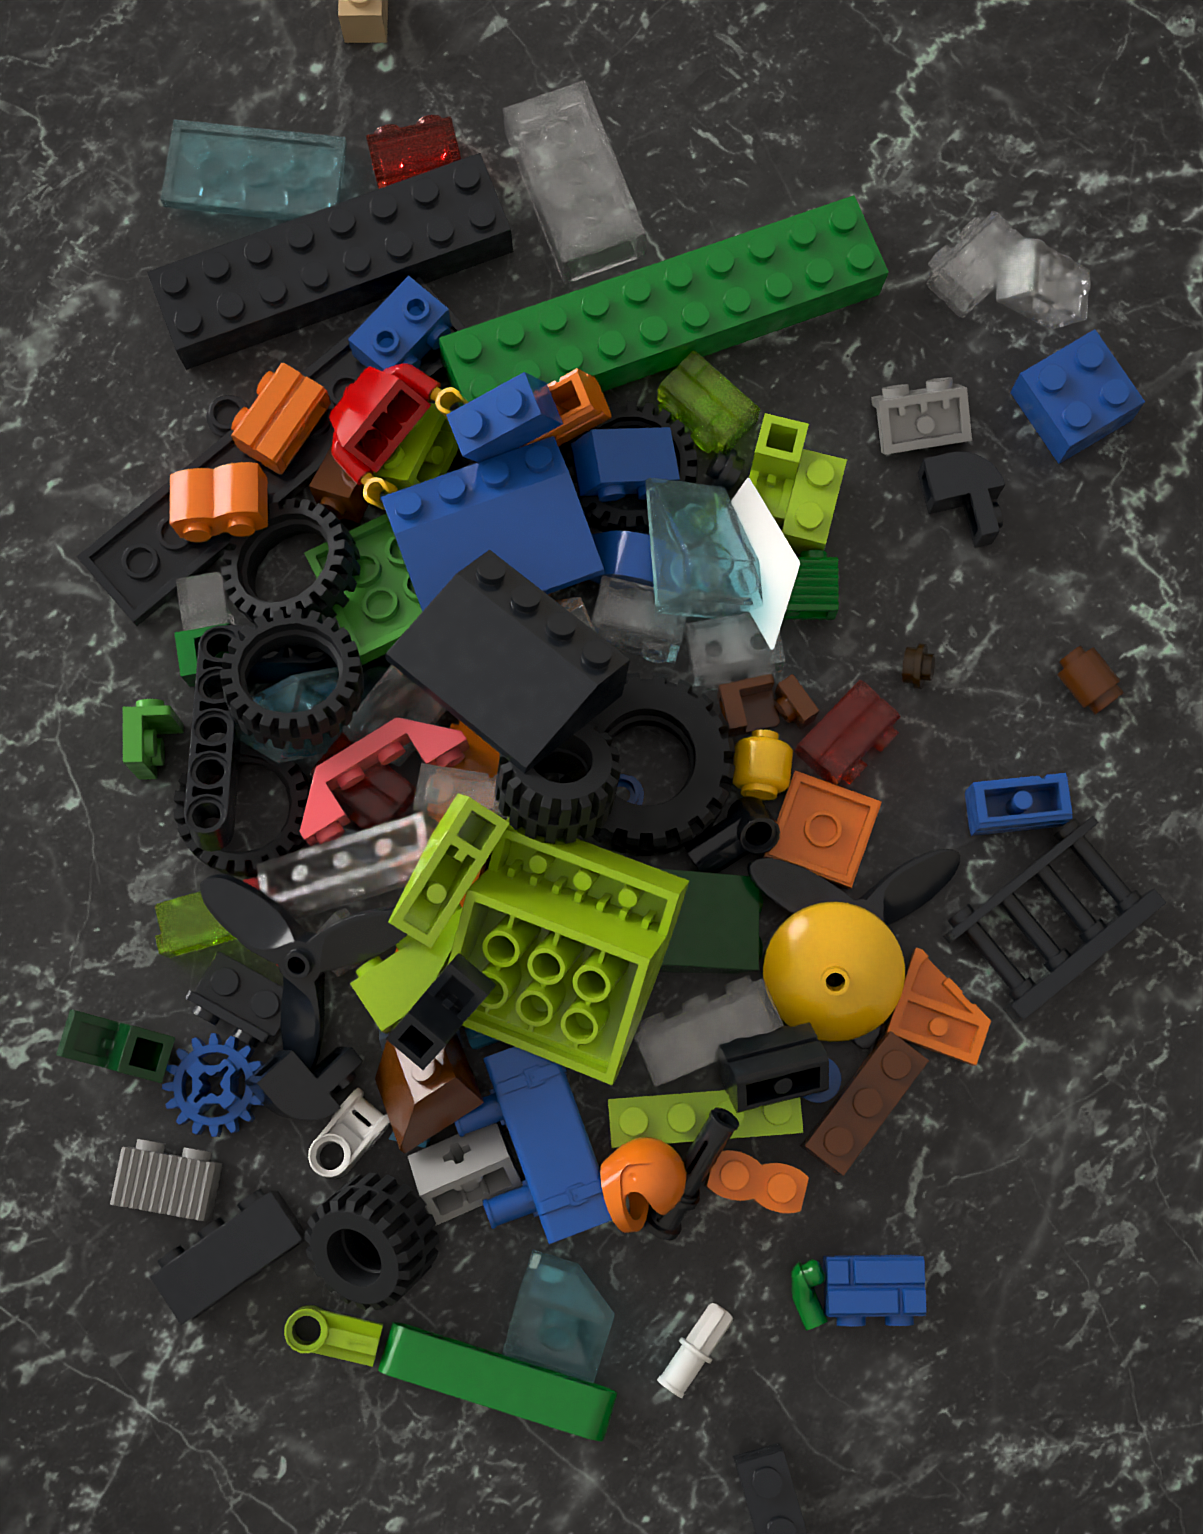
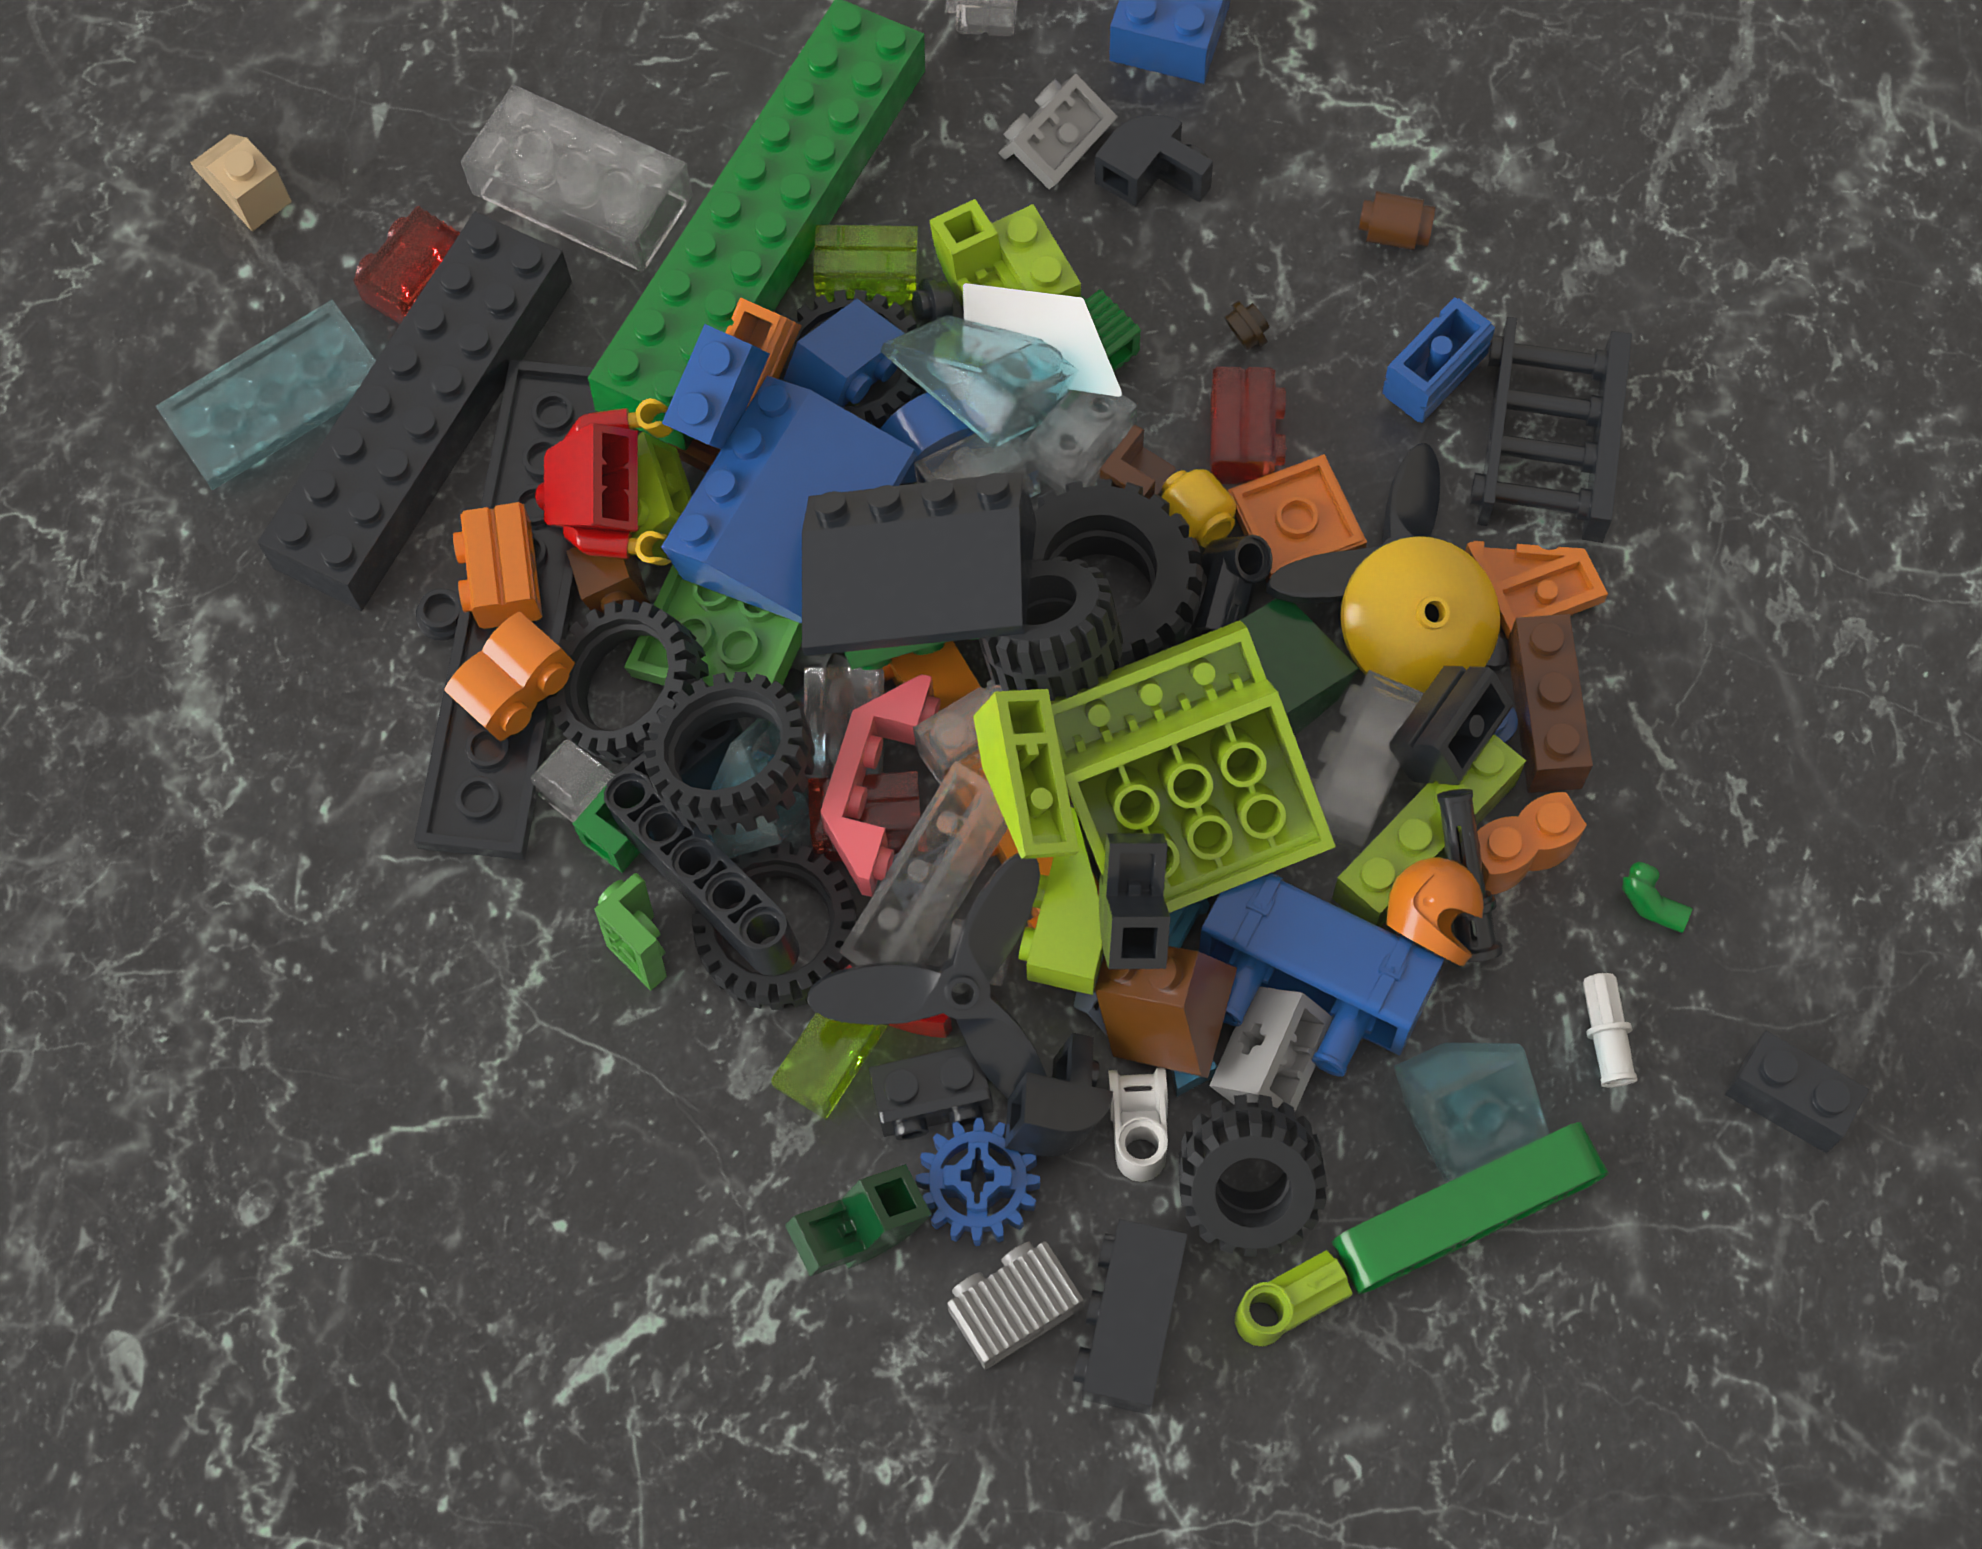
camera: 40 degrees left, 10 degrees down
(401, 328) = (540, 404): blue brick -> none
(794, 702) = (1175, 436): reddish brown plate -> none
(874, 1288) = (1704, 842): blue brick -> none

